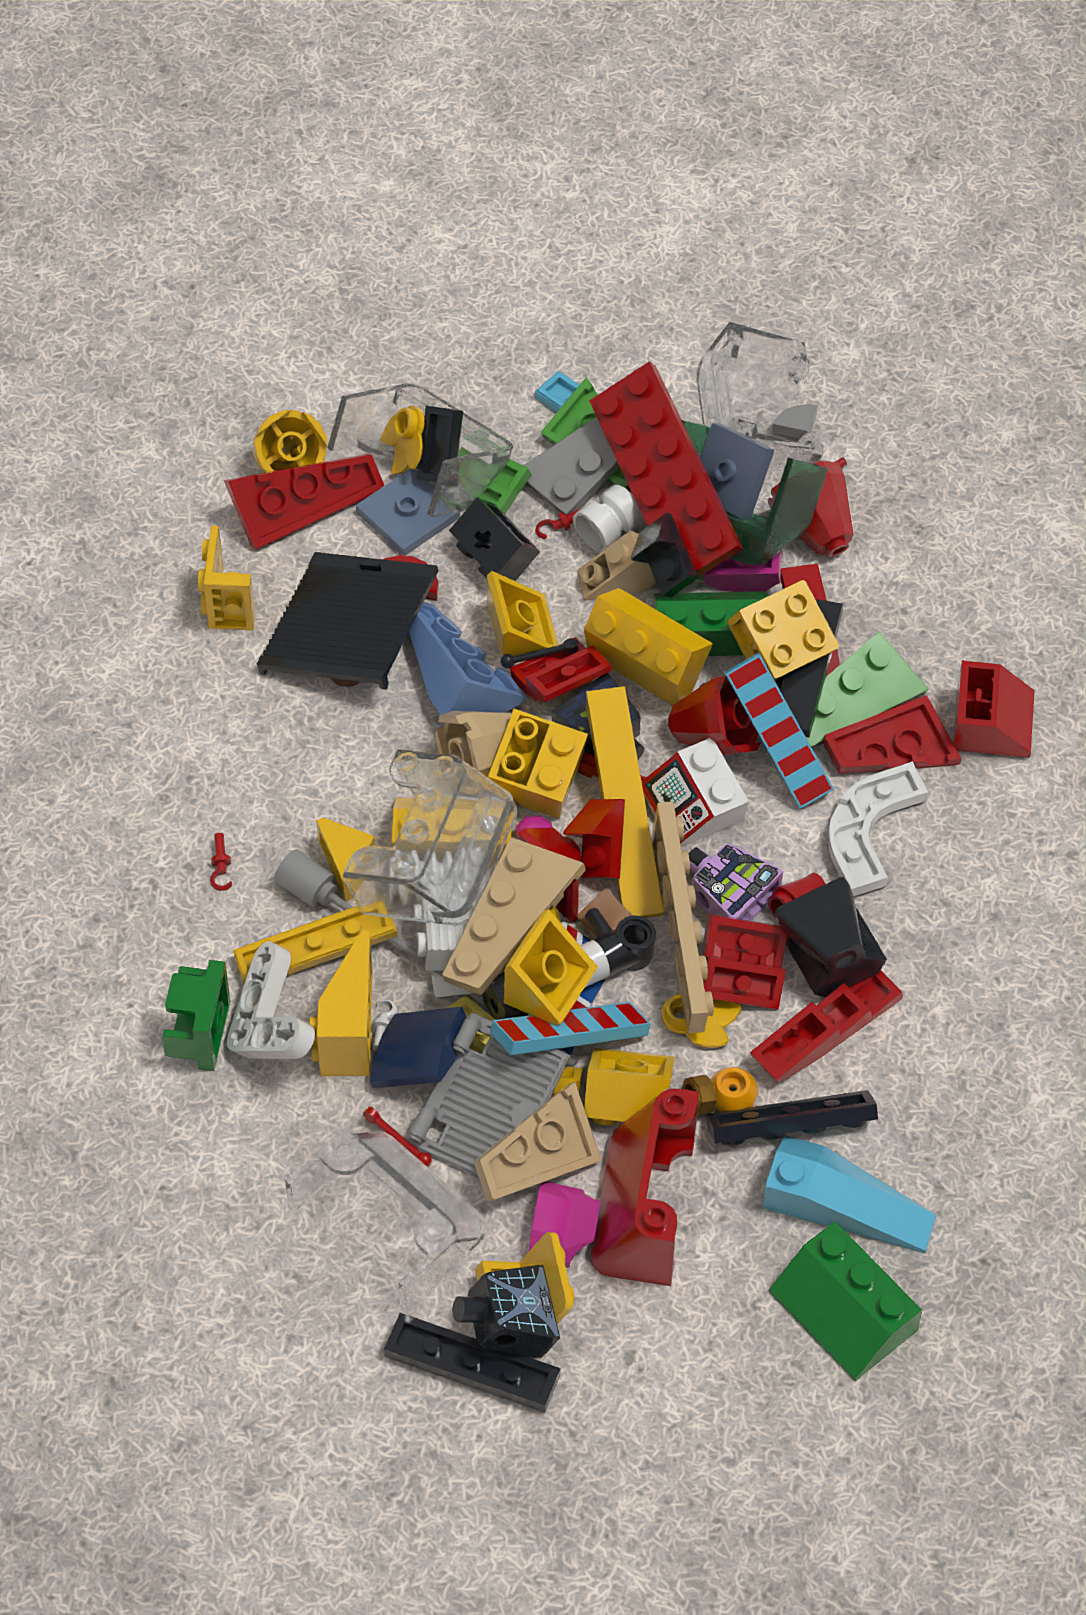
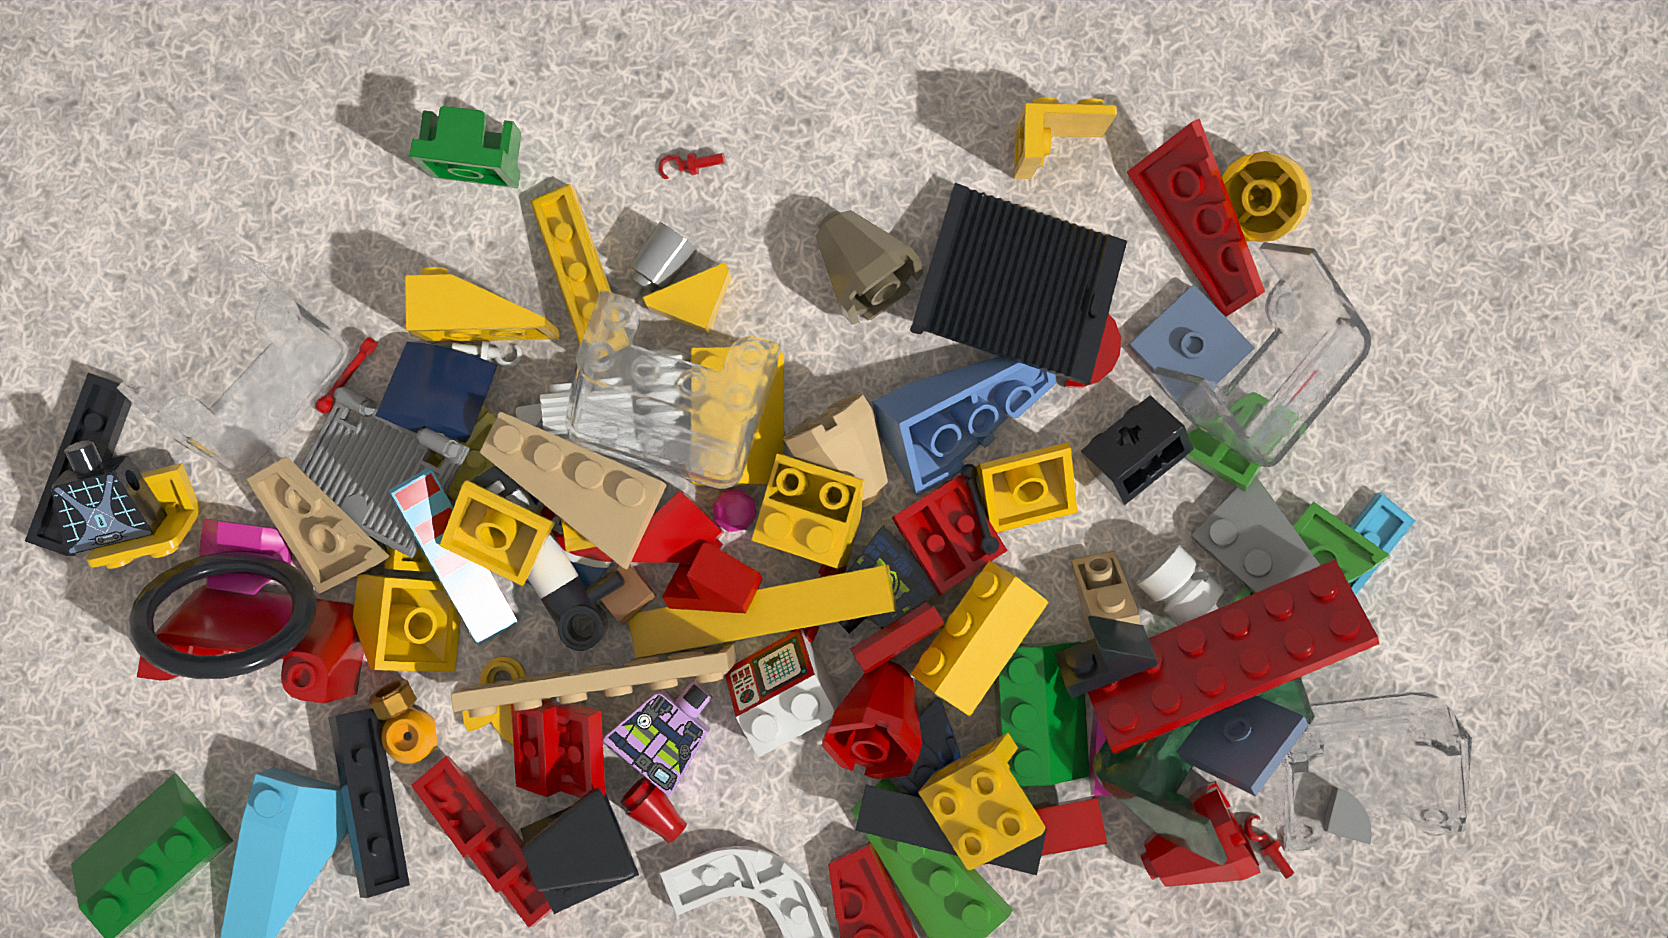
camera: 90 degrees right, 30 degrees up
(255, 1010) = (464, 209): white beam -> none
(323, 725) = (865, 262): none -> dark tan cone
(405, 433) = (1292, 337): yellow plate -> none
(439, 440) = (1268, 377): black tile -> none
(563, 521) = (1184, 532): red hand -> none
(650, 1197) = (228, 665): none -> black wedge
(651, 701) = (897, 637): none -> red slope
(779, 730) = (850, 793): tile -> none

